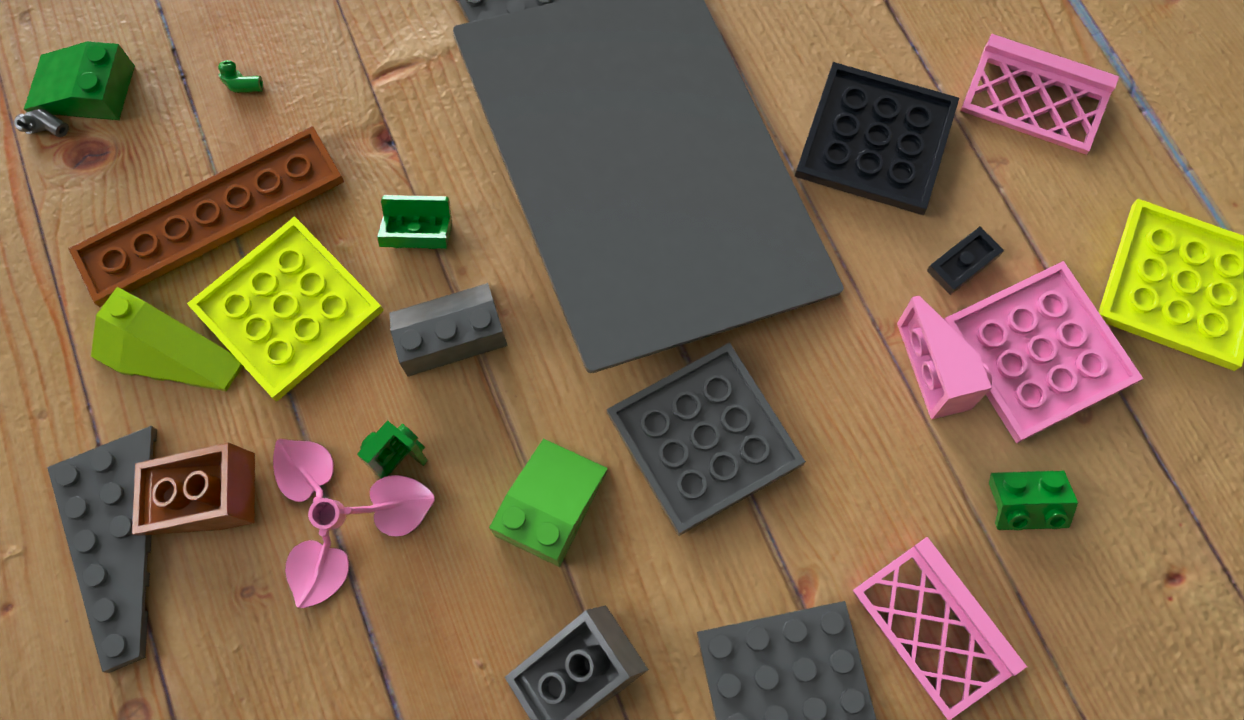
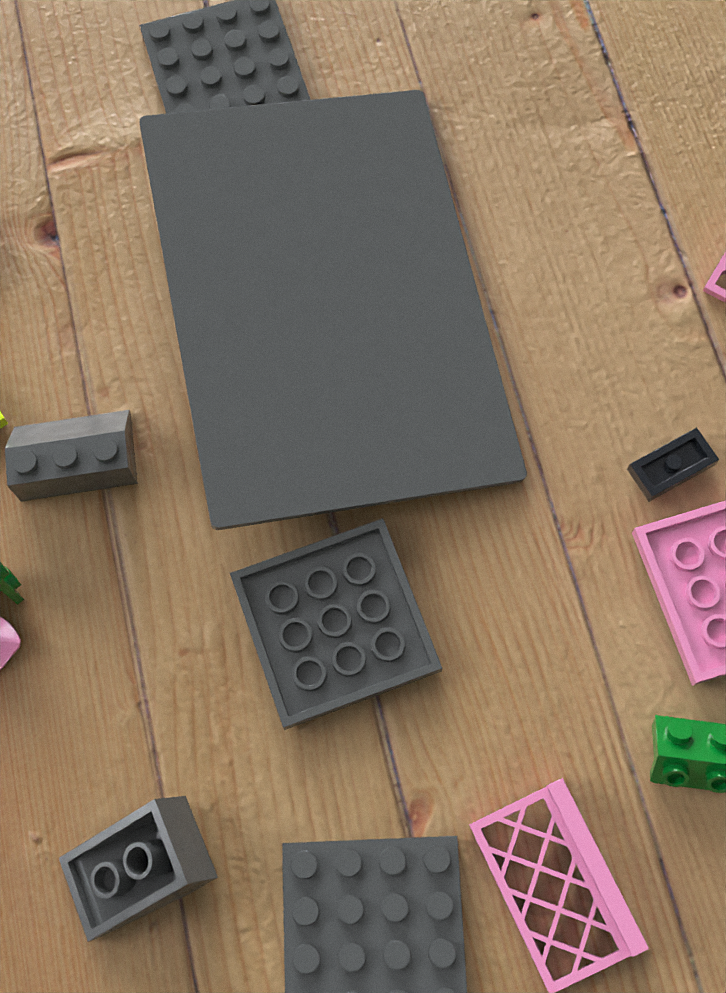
camera: 10 degrees right, 0 degrees up
(415, 222) = (60, 330): green bracket -> none
(548, 502) = (145, 667): bright green slope -> none
(877, 138) = (599, 309): black plate -> none
(943, 361) = (621, 579): bright pink slope -> none

